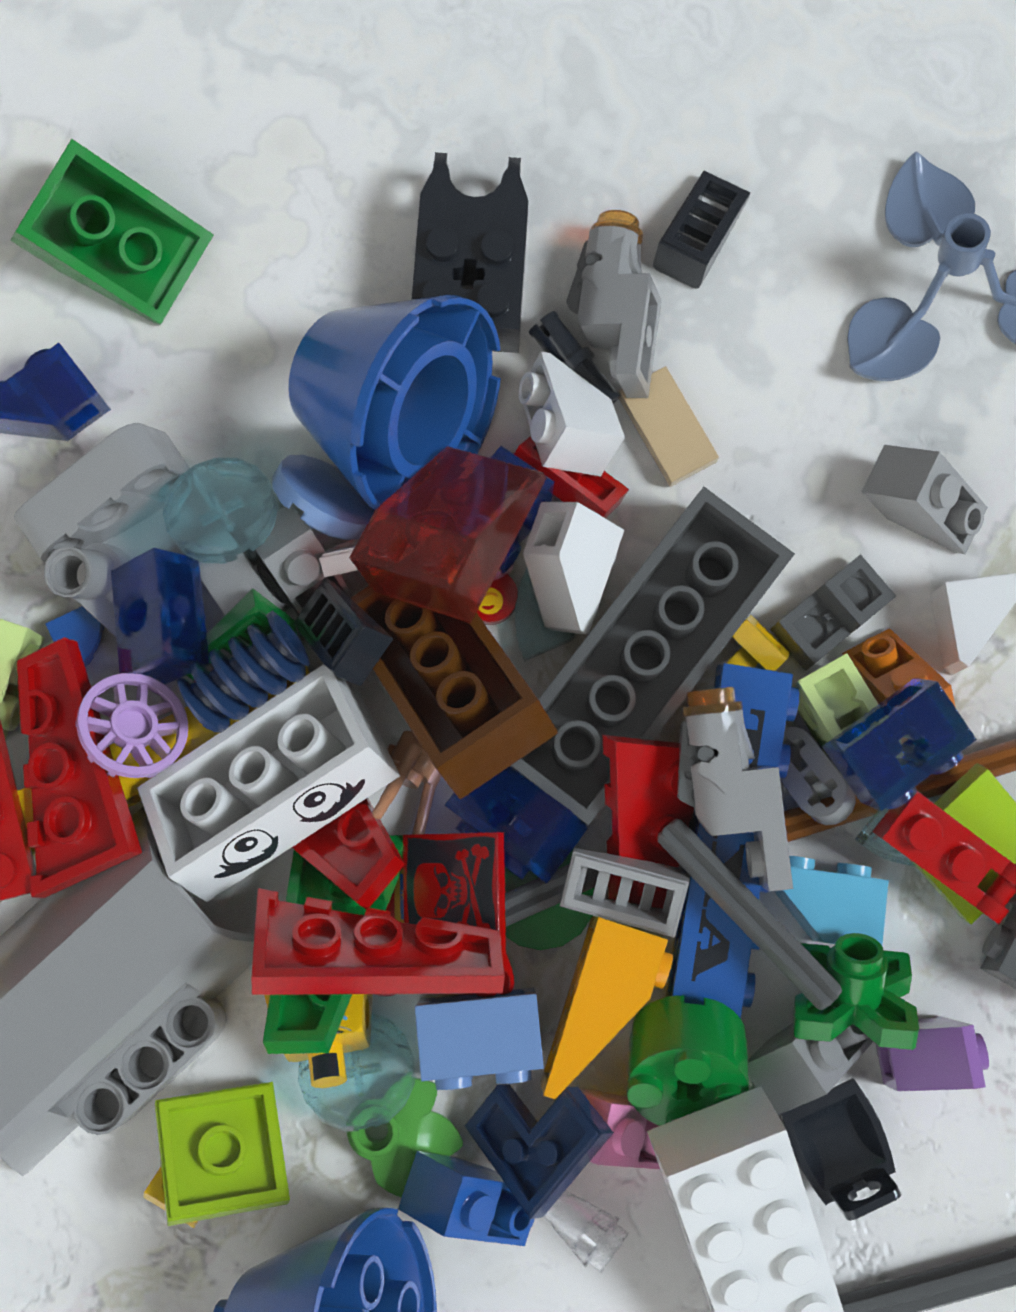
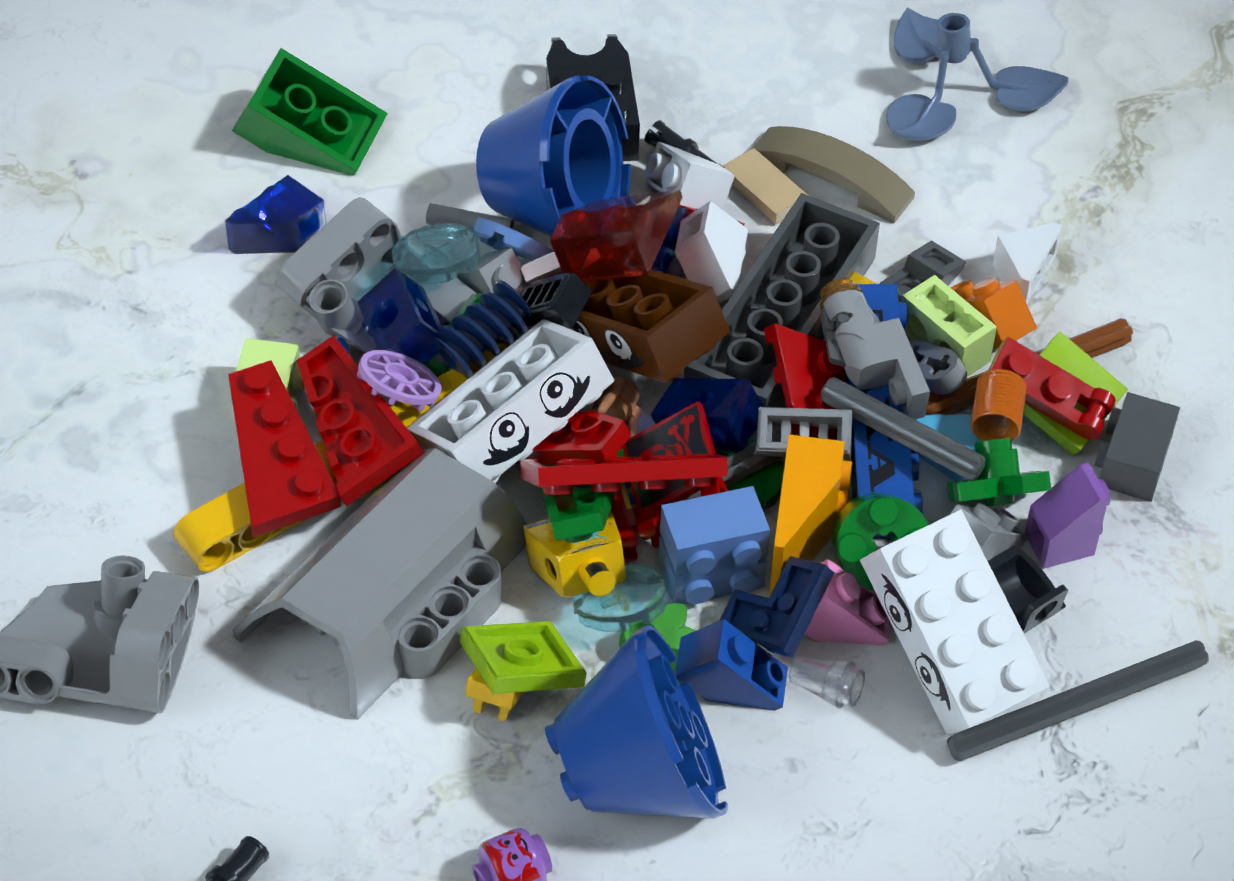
camera: 10 degrees left, 30 degrees down
(277, 427) = (443, 214): none -> light grey piece
(618, 301) = (707, 110): light grey plate -> none
(685, 257) = (756, 77): black slope -> none
(762, 411) = (840, 163): none -> dark tan slope
(869, 747) = (986, 307): clear blue brick -> none
(880, 892) = (998, 405): none -> orange piece
(925, 496) = (970, 196): light grey slope -> none

